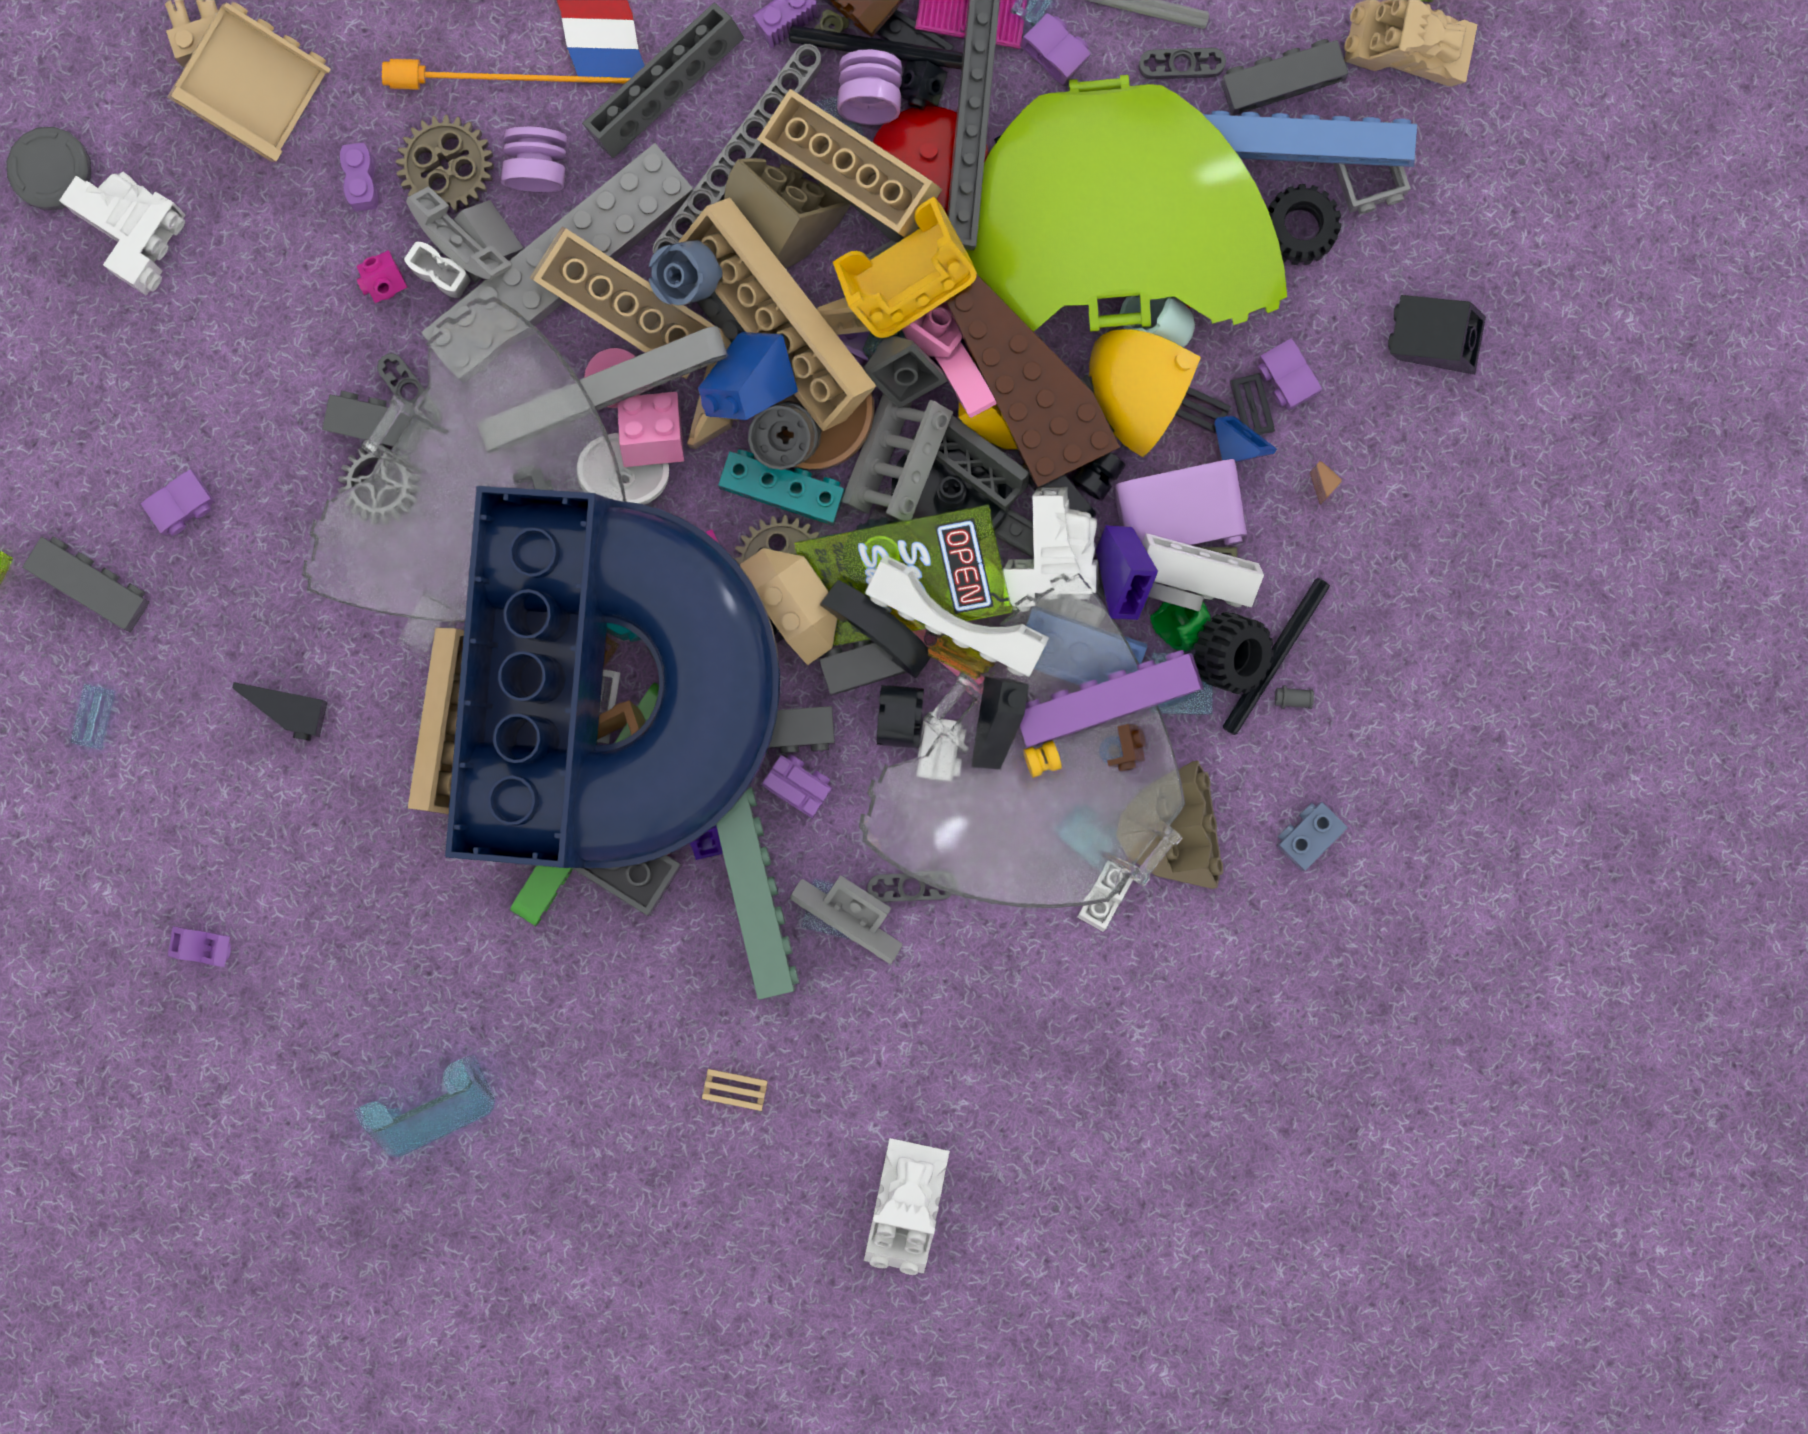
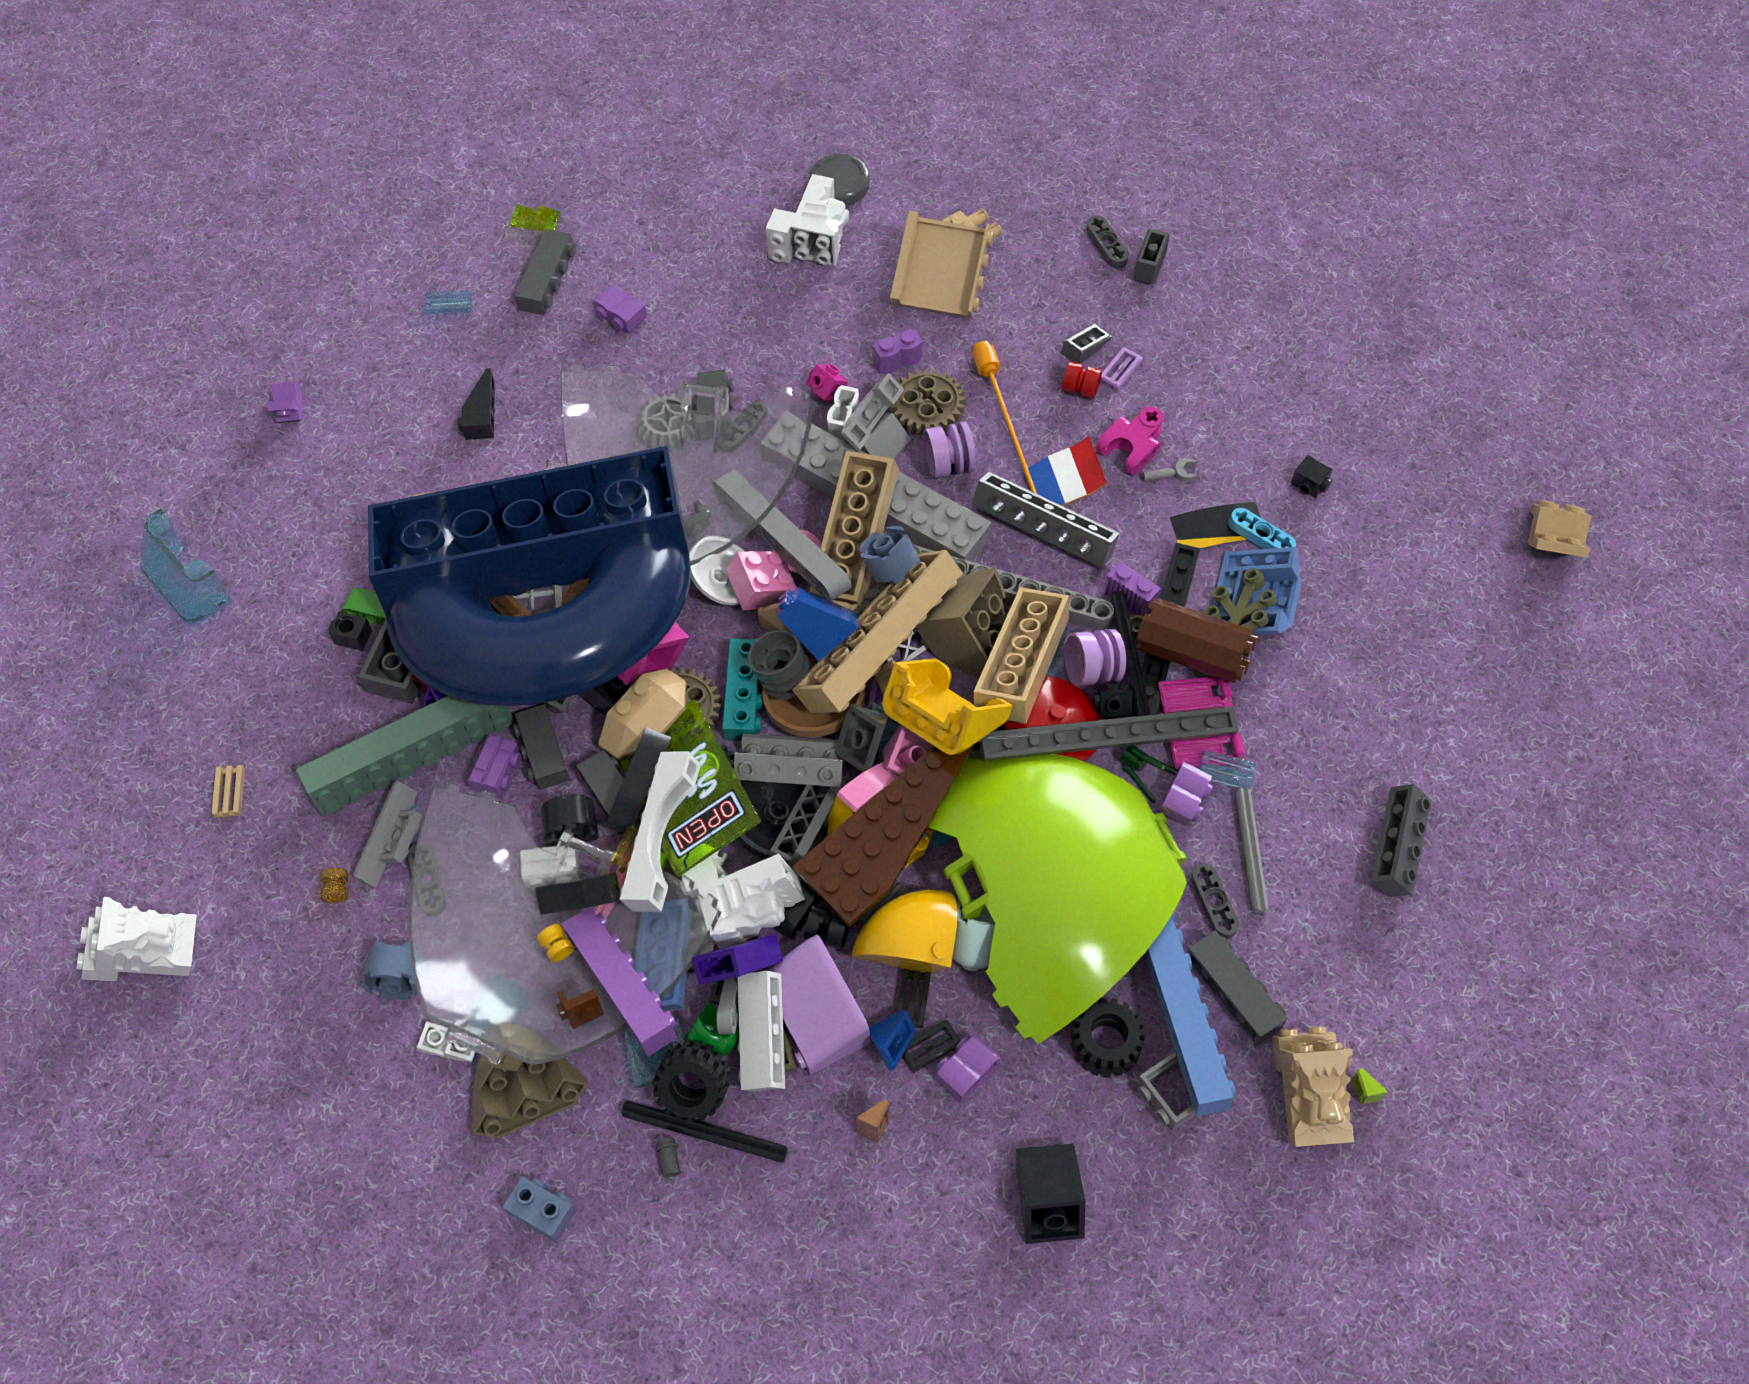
camera: 75 degrees right, 25 degrees down
(579, 914) = (359, 633): none -> black brick
(899, 988) = (334, 885): none -> clear yellow wheel
(1001, 85) = (1137, 759): none -> dark green plant
(1018, 937) = (390, 971): none -> sand blue brick

